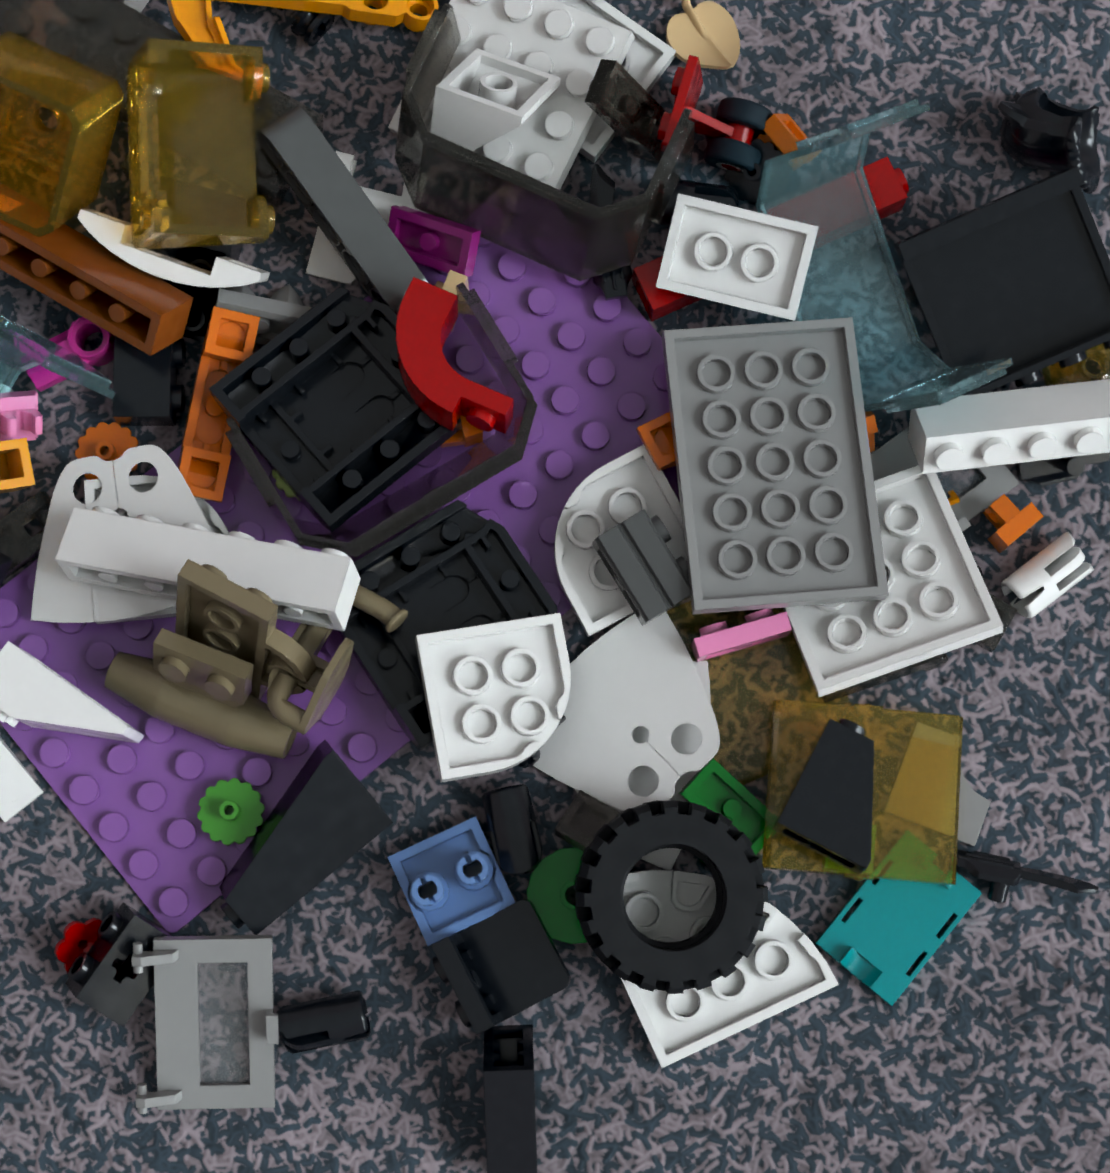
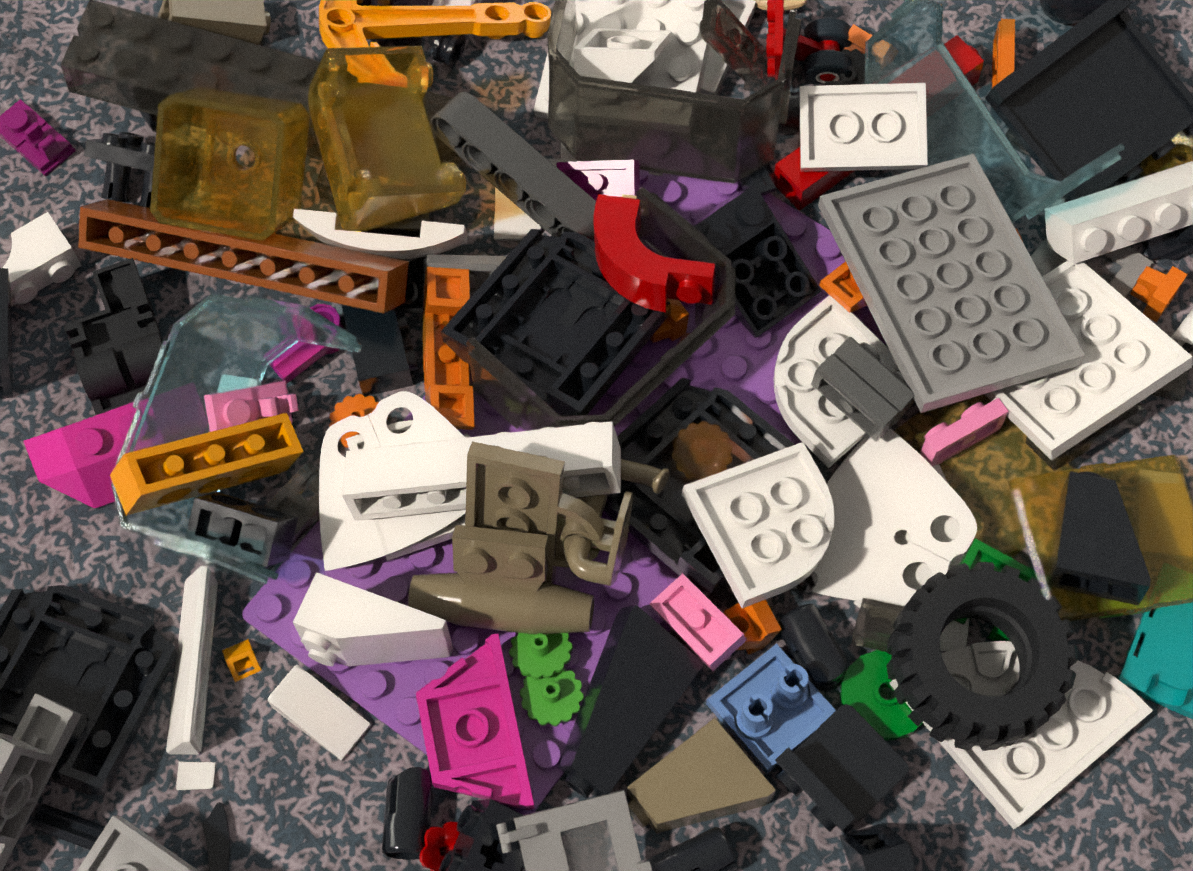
camera: 10 degrees left, 15 degrees down
(55, 897) = (407, 814): none -> black arm
(142, 830) = (474, 730): none -> dark pink wing
(230, 768) = (540, 654): none -> bright green piece
(353, 941) = (698, 783): none -> dark tan slope
(396, 778) = (698, 622): none -> bright pink tile
(454, 591) = (702, 450): none -> clear orange piece
(458, 795) = (756, 624): none -> orange tile
(572, 378) = (768, 269): none -> black slope
(935, 191) = (1003, 50): none -> orange tile

